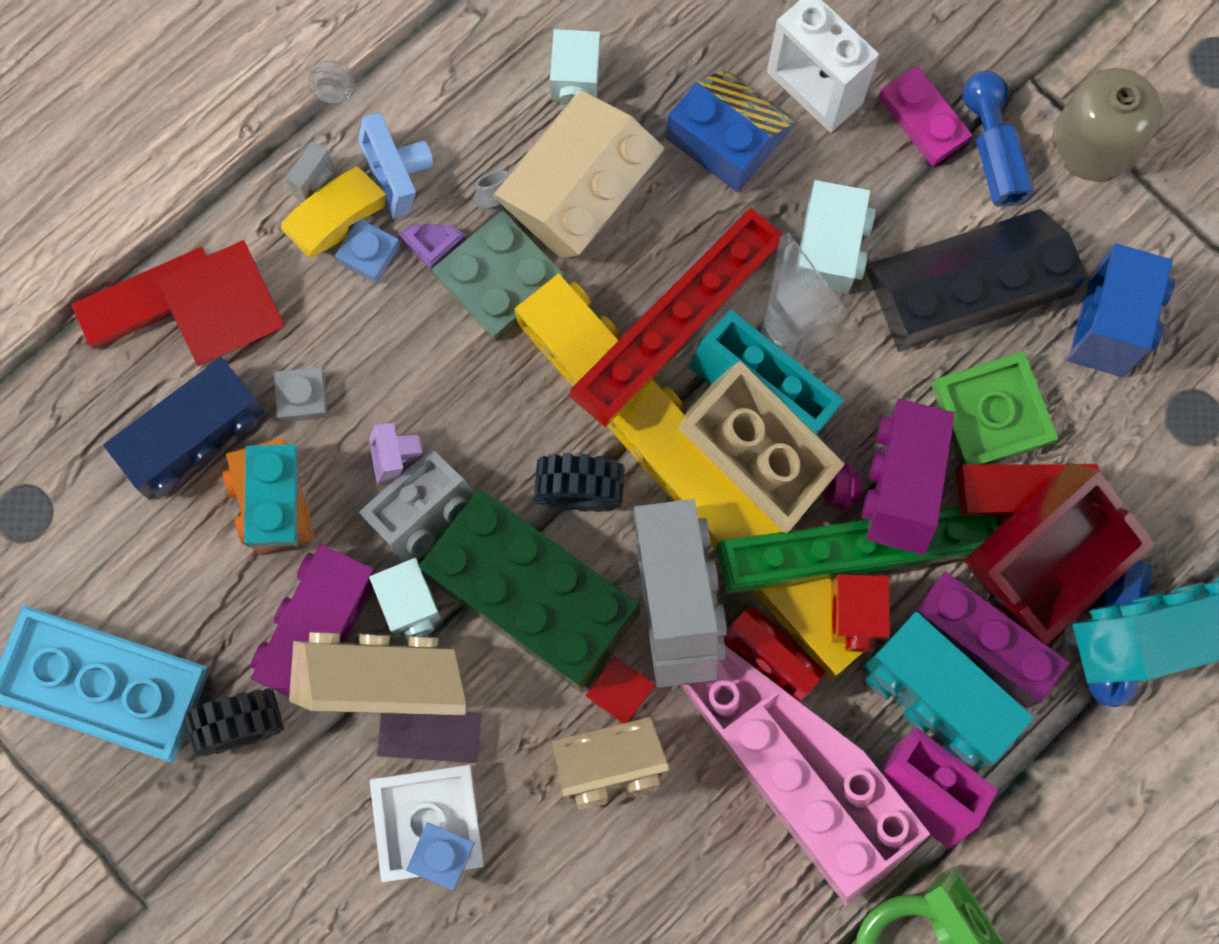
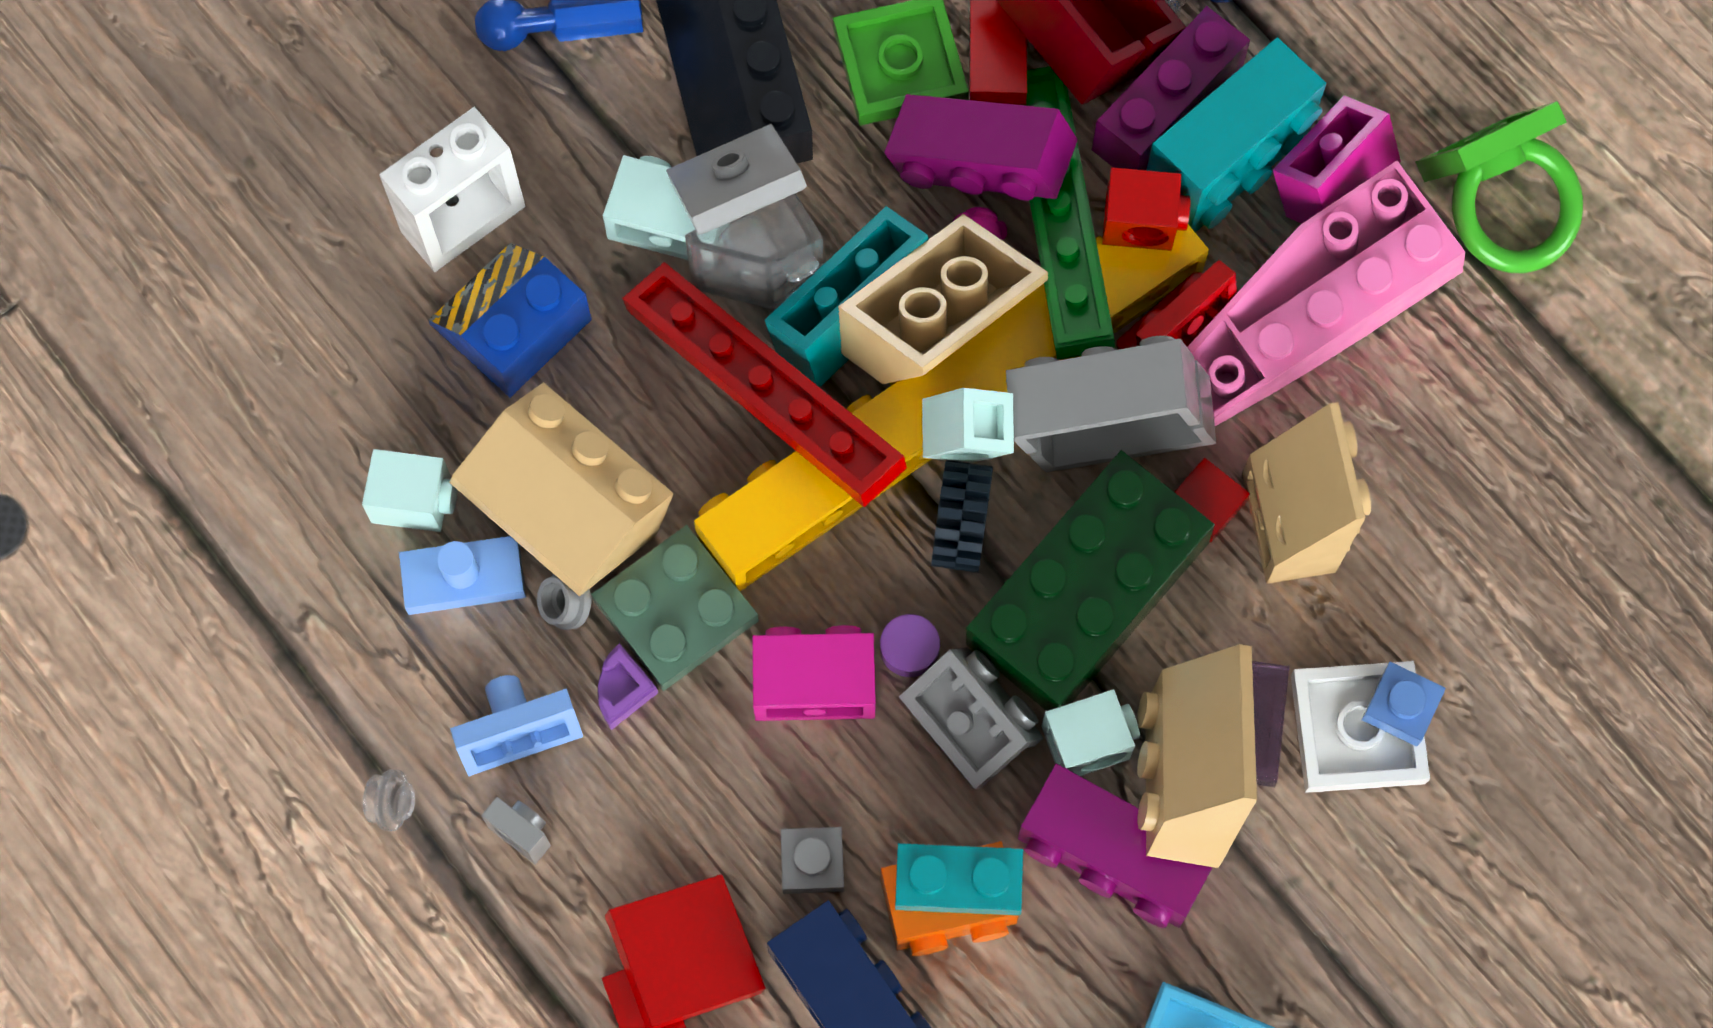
camera: 85 degrees left, 5 degrees down
(233, 722) = (1238, 941): black tyre -> none
(327, 213) = (572, 803): yellow slope -> none
(367, 251) = (625, 768): medium blue plate -> none
(392, 452) = (902, 746): lavender tile -> none
(444, 380) = (813, 674): none -> dark pink brick
(477, 456) = (909, 645): none -> medium lavender tile
(512, 114) = (462, 575): none -> light blue tile
(643, 472) = (967, 425): none -> light aqua brick
(845, 269) = (736, 179): none -> light grey plate
(924, 116) = (523, 92): dark pink plate -> none

